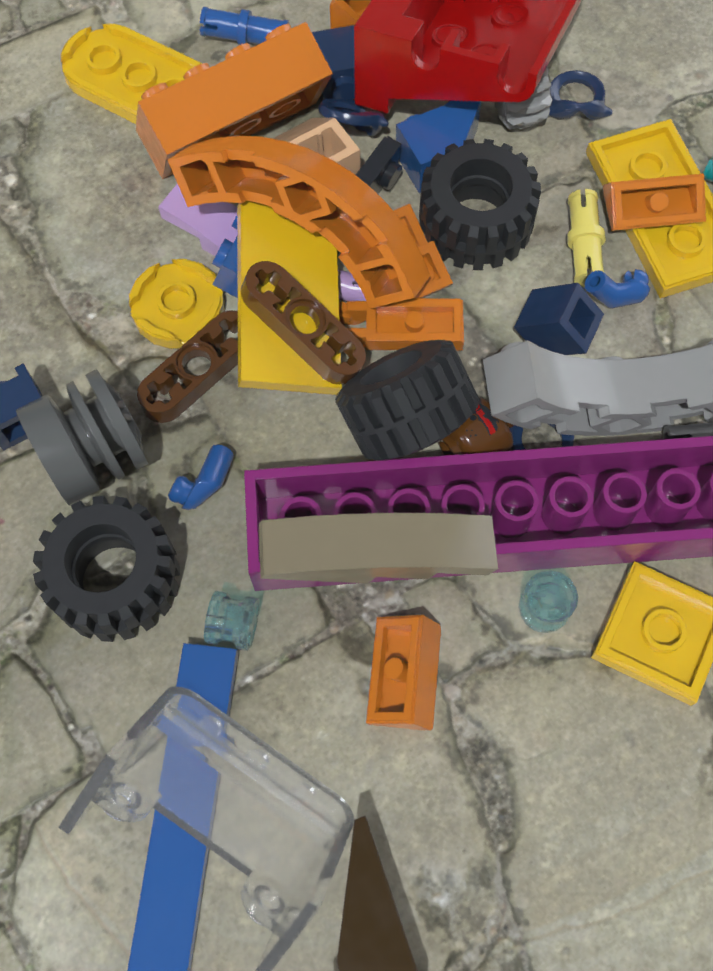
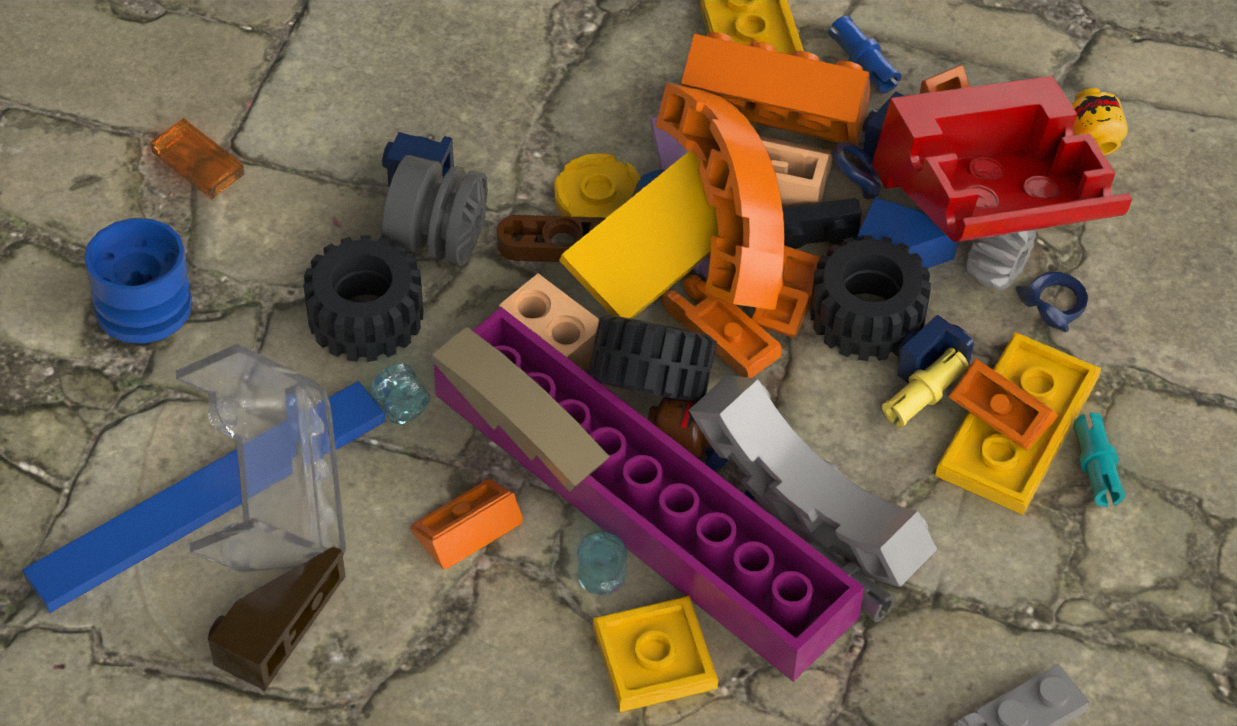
camera: 45 degrees right, 15 degrees down
(208, 481) = (469, 308): blue arm -> none
(266, 306) = (651, 238): reddish brown beam -> none
(282, 434) = (555, 318): none -> light nougat brick
(554, 208) = (929, 344): none -> dark blue bracket
(560, 319) = (825, 413): dark blue brick -> none
(614, 295) = (896, 439): blue arm -> none

